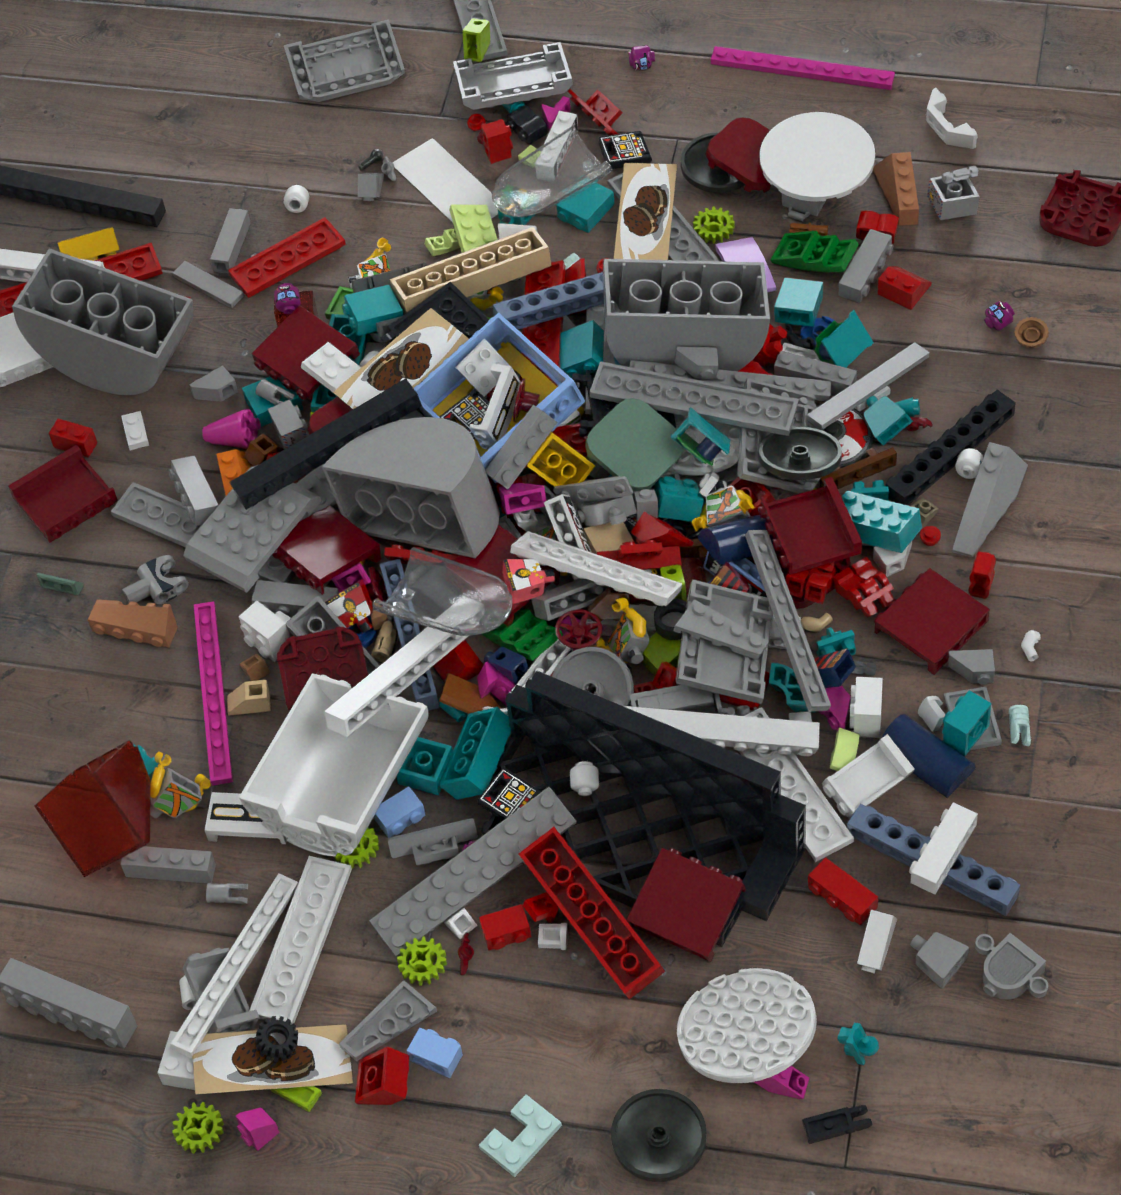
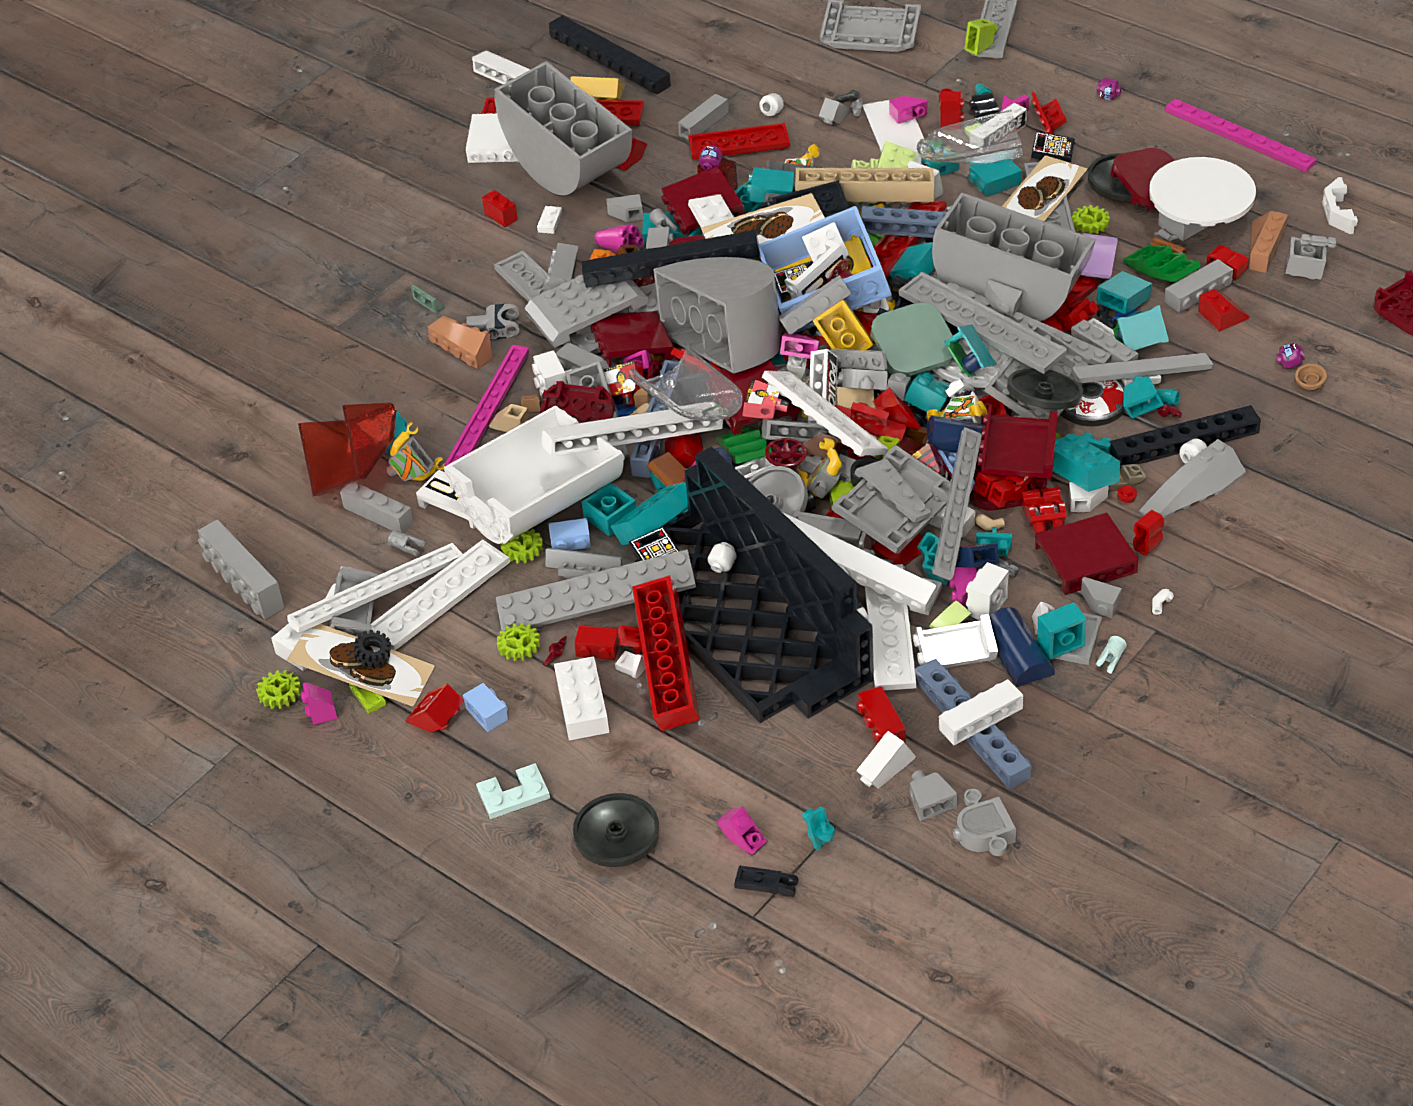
camera: 25 degrees right, 10 degrees down
(62, 494) = (468, 242): dark red panel -> none
(208, 284) = (668, 142): light grey tile -> none
(392, 1017) = (466, 672): light grey wing -> none
(445, 154) = (907, 108): none -> dark pink slope
(460, 923) = (566, 627): white slope -> none
(513, 78) = (991, 72): light grey slope -> none
(529, 999) = (581, 698): none -> white brick
(685, 903) = (744, 674): dark red panel -> none
(746, 1026) = (736, 779): white tile -> none
(864, 468) = (1096, 426): reddish brown hinge -> none

